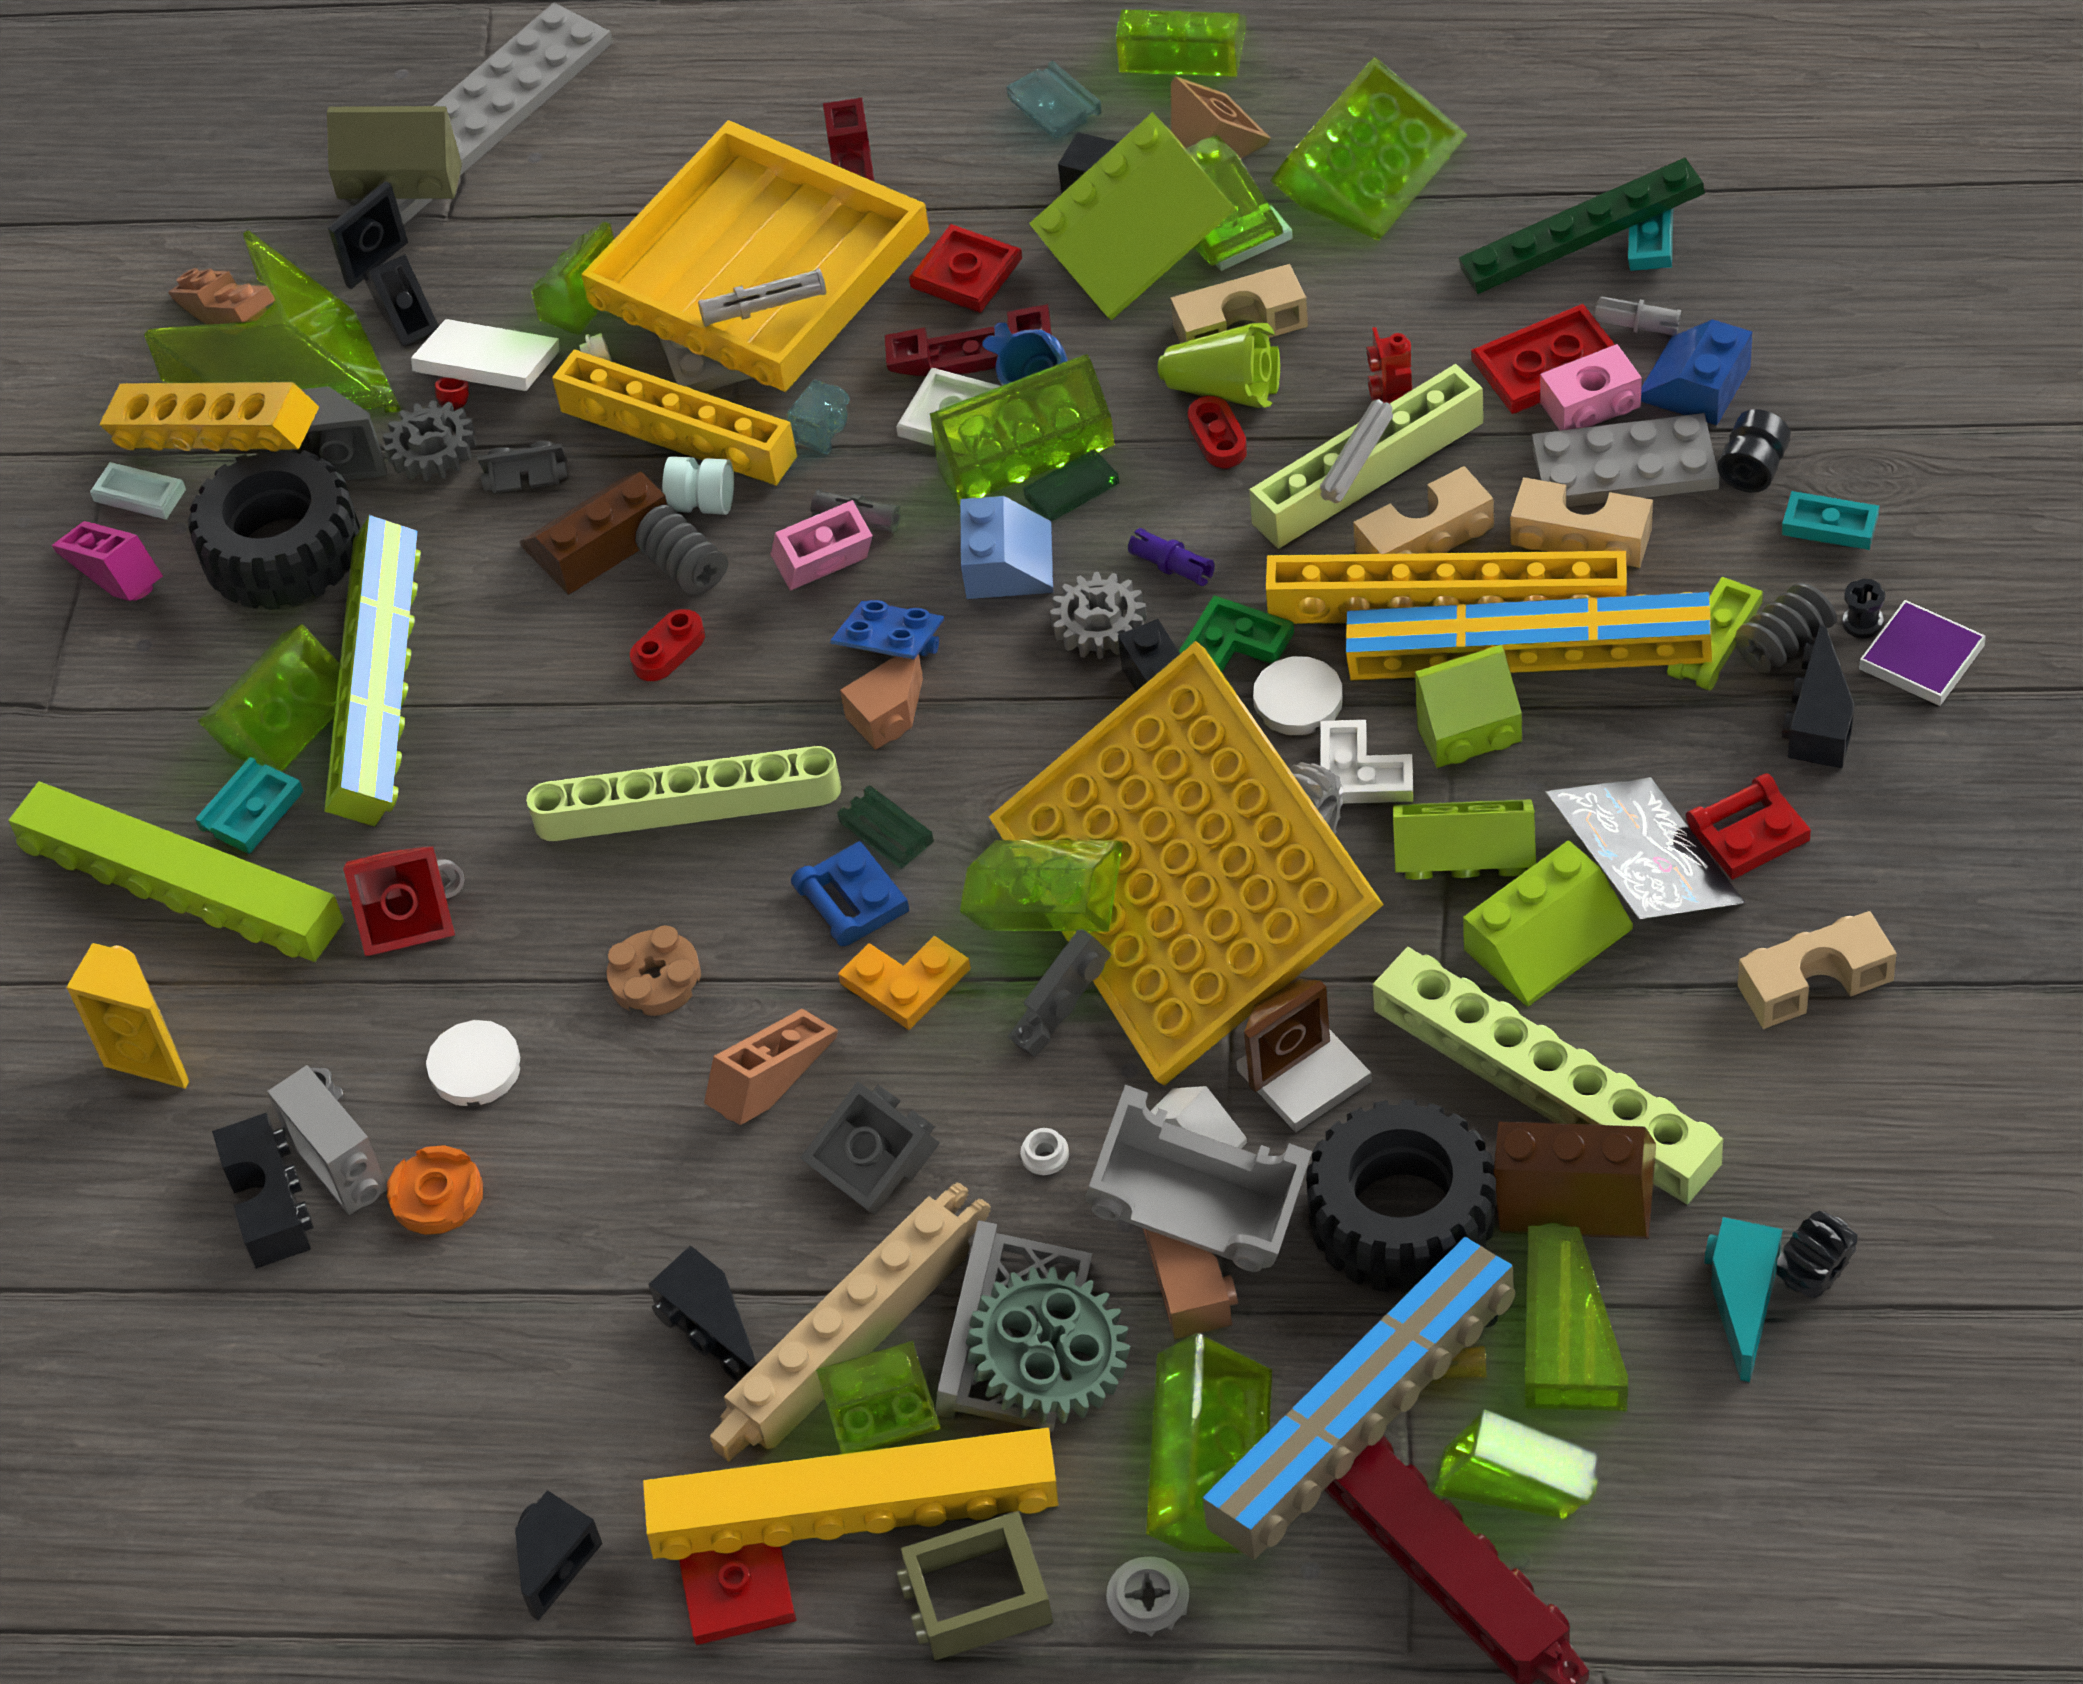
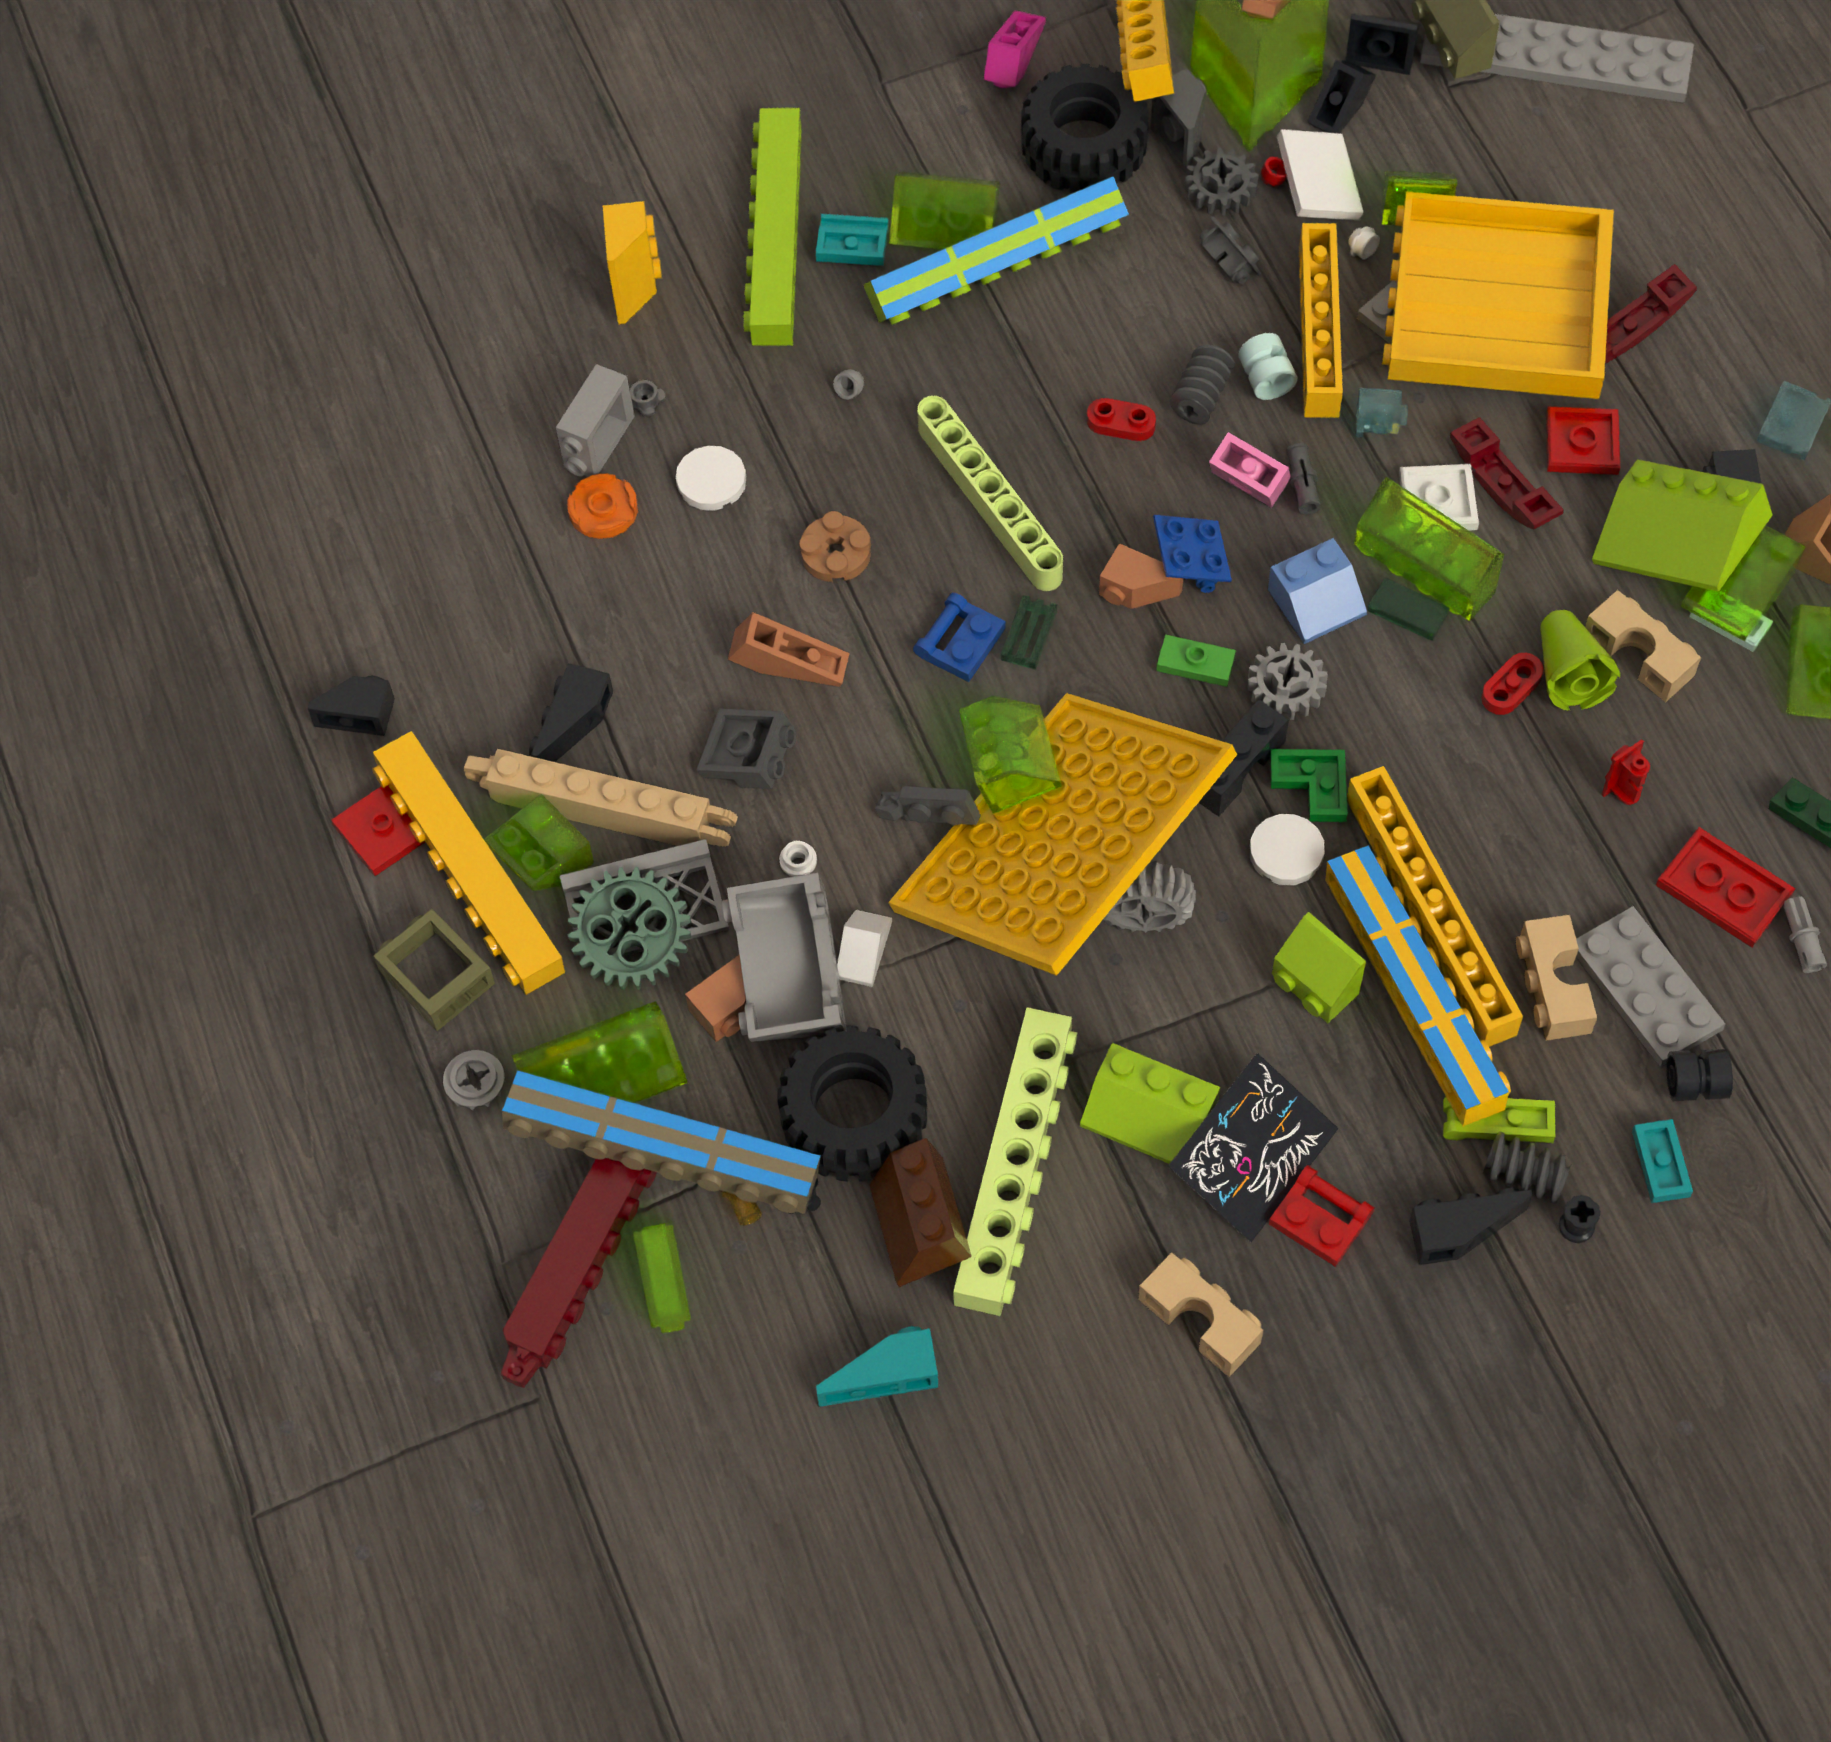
camera: 60 degrees right, 10 degrees up
(137, 490) = (1089, 34): light aqua tile -> none
(272, 1220) = (532, 425): black arch -> none
(398, 899) = (811, 362): red slope -> none
(594, 533) = (1188, 320): reddish brown slope -> none
(761, 297) = (1412, 291): light grey pin -> none
(906, 990) = (897, 712): light orange plate -> none
(1017, 689) = (1196, 660): none -> bright green plate
(1023, 352) = (1500, 520): blue hat -> none
(1171, 557) = (1371, 706): dark purple pin -> none
(1285, 1030) = (951, 962): reddish brown slope -> none
(1314, 1083) = (946, 997): white tile -> none
(1356, 451) = (1515, 782): light grey axle -> none
(1362, 775) = (1227, 917): white plate -> none
(1420, 426) = (1536, 796): yellowish green brick -> none
(1457, 512) = (1516, 885): tan arch -> none
(1464, 838) = (1205, 1015): lime slope -> none
(1569, 1337) = (802, 1258): clear neon green slope -> none
(1591, 389) = (1694, 911): bright pink brick -> none
(1700, 370) = (1767, 1004): blue slope -> none
(1816, 1254) = (930, 1407): black gear -> none
(1922, 652) = (1563, 1281): dark purple tile -> none

